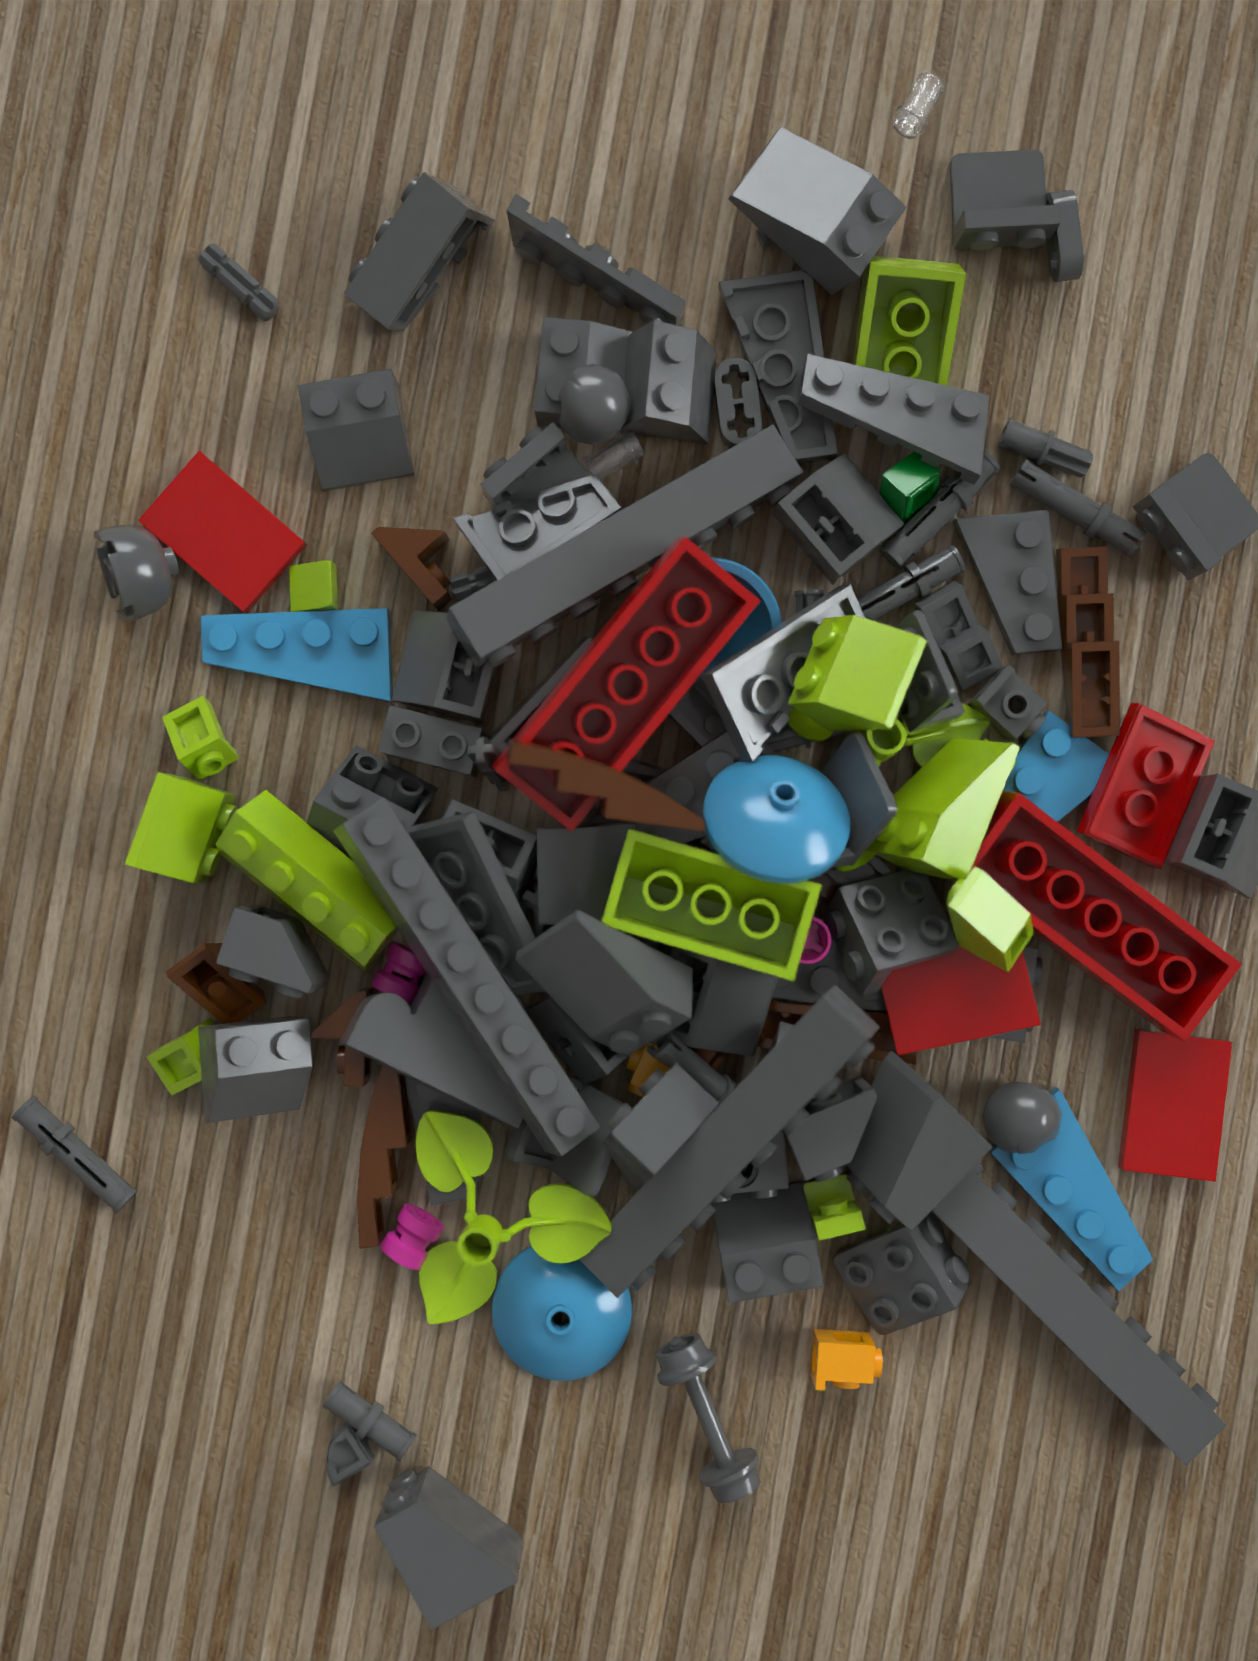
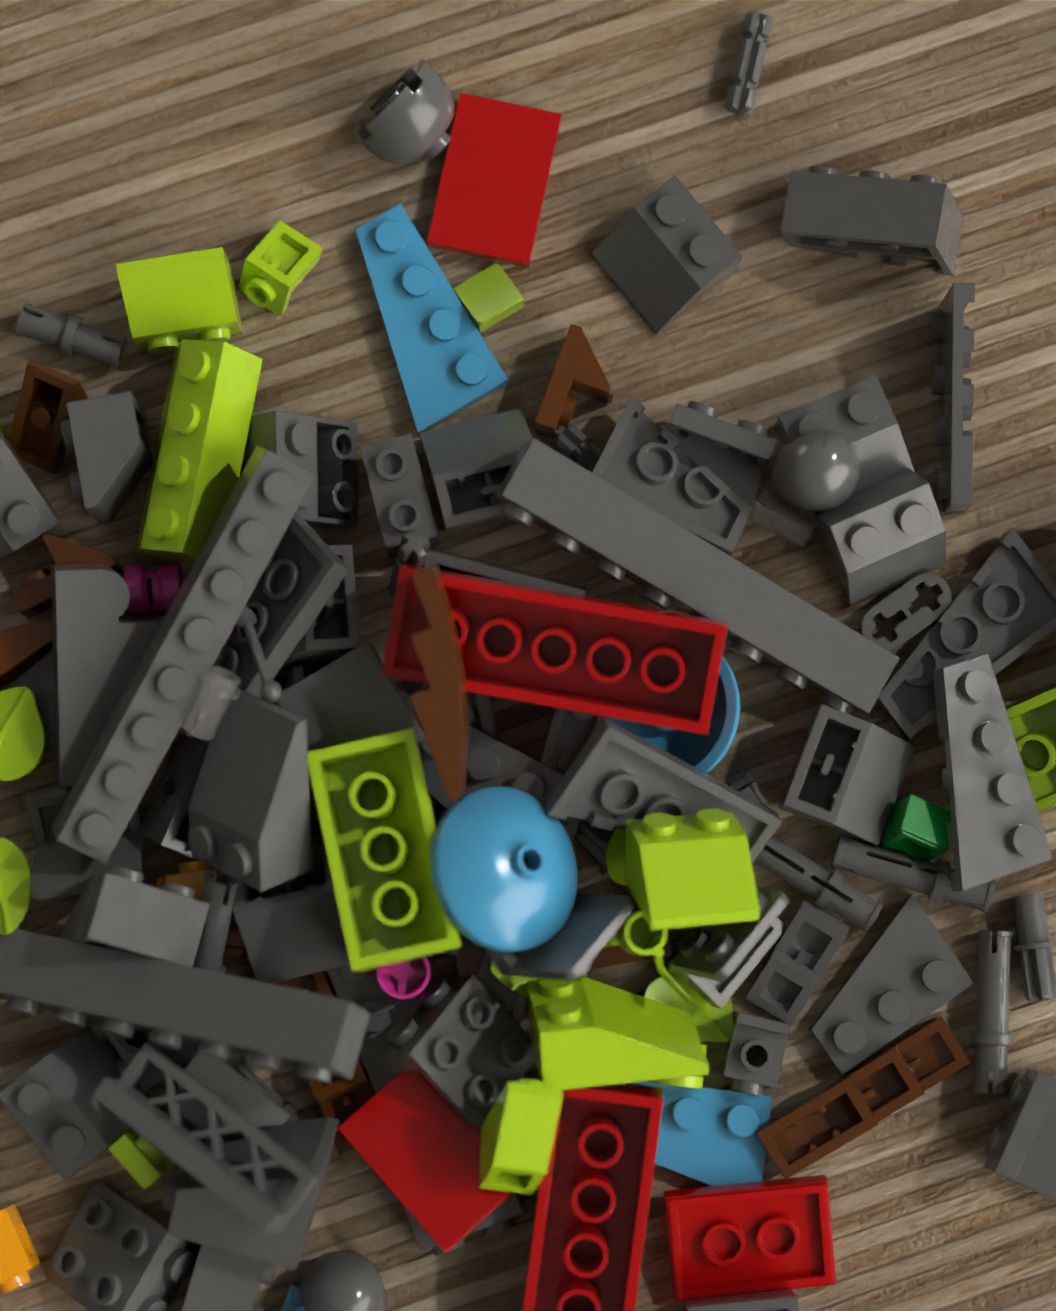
camera: 60 degrees right, 5 degrees down
(164, 929) = (71, 335): none -> dark grey pin
(519, 976) = (211, 702): none -> clear pin
(536, 924) = (270, 690): none -> dark grey hinge
(868, 1181) = (194, 1155): none -> dark grey fence

